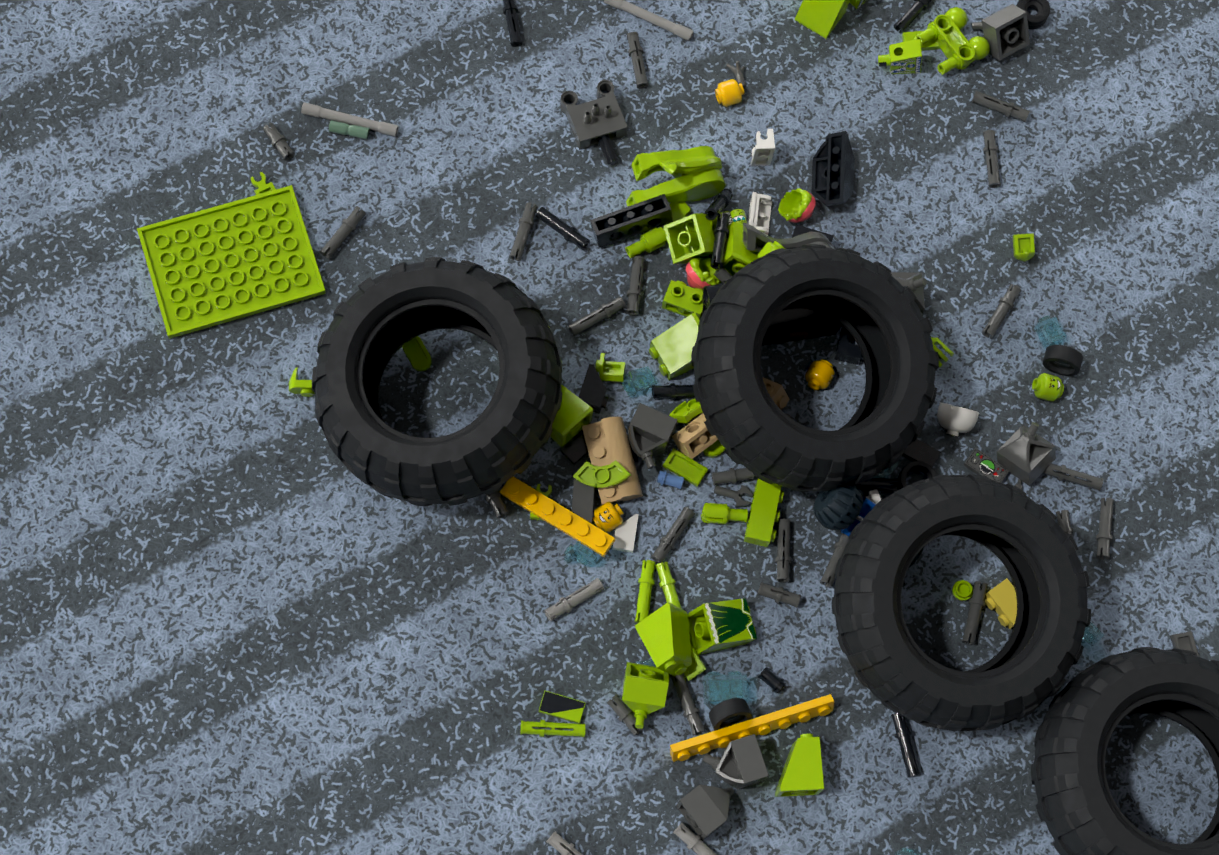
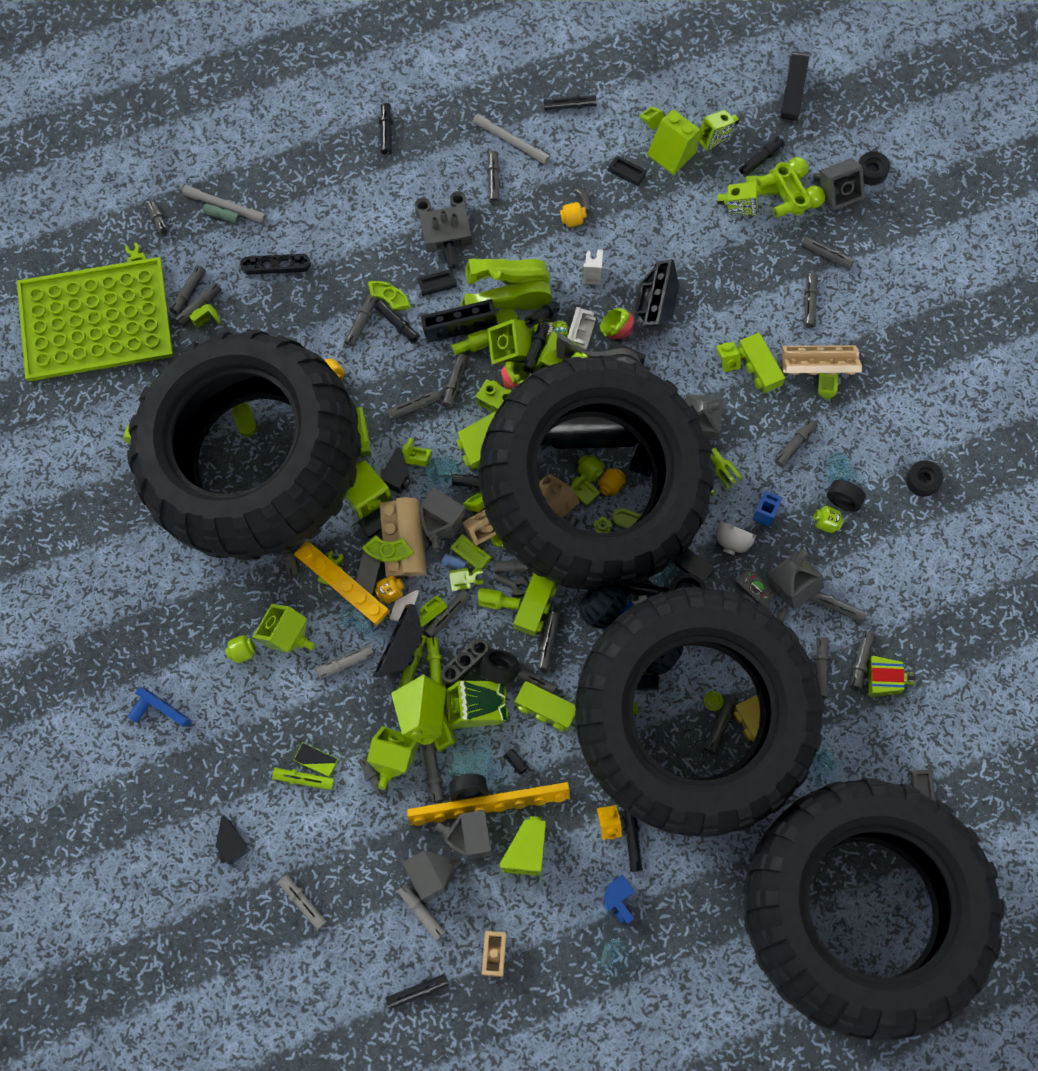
camera: 20 degrees right, 0 degrees up
(325, 225) = (184, 295): none -> dark grey pin
(350, 244) = (204, 314): none -> lime plate
(368, 669) = (148, 698): none -> blue piece
(418, 176) = (275, 264): none -> black beam
(461, 600) = (240, 649): none -> lime head
(489, 807) = (229, 842): none -> black slope
(504, 573) = (283, 629): none -> lime piece
(550, 200) = (391, 295): none -> lime tile
(597, 181) = (437, 282): none -> black tile
(634, 572) = (402, 643): none -> black wedge
(655, 533) = (431, 609): none -> lime tile
(681, 495) = (461, 578): none -> lime plate
(706, 575) = (468, 653): none -> dark grey beam
(742, 592) = (497, 674): none -> black tyre
(777, 38) = (627, 170): none -> black tile
(793, 386) = (584, 490): none -> lime bracket
(793, 619) = (545, 706): none -> lime brick
(796, 362) = (591, 467): none -> lime head
(818, 416) = (602, 520): none -> lime plate
(840, 411) = (625, 518): none -> lime tile
(879, 729) = (609, 822): none -> yellow bracket
(897, 805) = (614, 896): none -> blue brick
(918, 227) = (729, 356): none -> lime bracket
(952, 231) = (760, 363): none -> lime brick
(985, 384) = (767, 508): none -> blue brick
(1012, 220) = (821, 359): none -> tan brick
(1133, 542) = (887, 677): none -> torso
(1139, 322) = (928, 468): none -> black tyre

